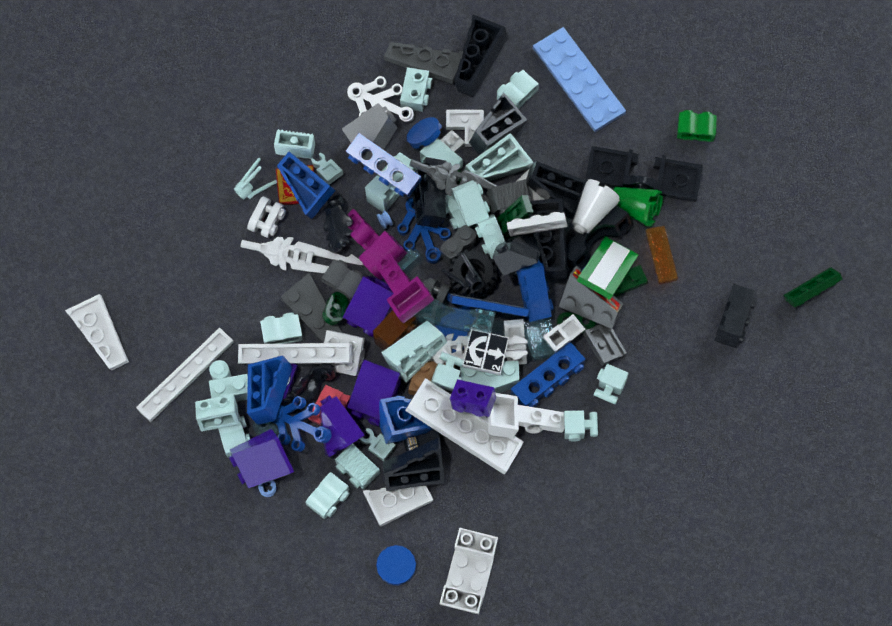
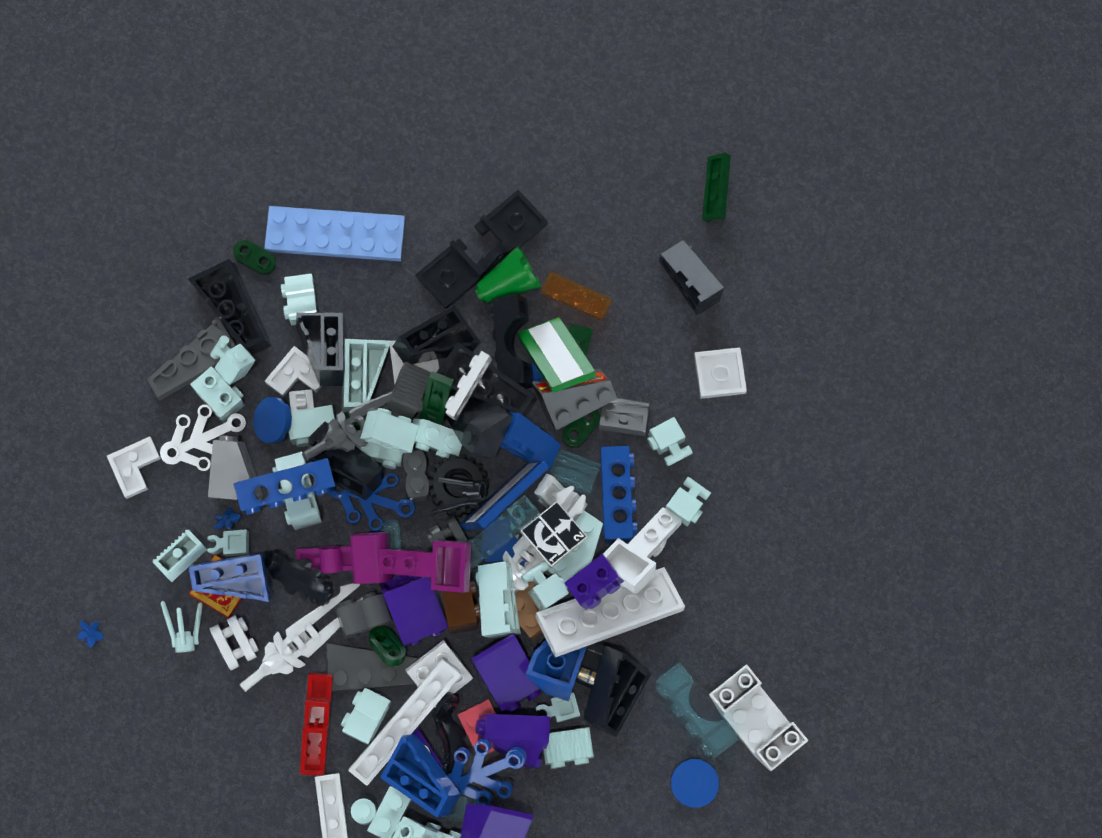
camera: 60 degrees left, 5 degrees up
(207, 132) = (90, 633): none -> blue plant
(253, 305) = (316, 724): none -> red slope
(328, 72) = (129, 461): none -> white plate
(328, 495) = (575, 798): light aqua brick -> none
(340, 156) = (227, 519): none -> blue plant
(384, 219) = (331, 527): light blue bush -> none
(396, 503) = (633, 740): white wing -> none
(441, 81) = (233, 362): none -> light aqua brick
(451, 507) = (714, 736): none -> clear light blue arch
(522, 43) = (253, 257): none -> dark green plate
(563, 333) = (588, 449): white brick -> none
(593, 206) = (485, 319): white cone -> none
(686, 383) = (720, 373): none -> white tile
(696, 126) = (473, 164): green brick -> none

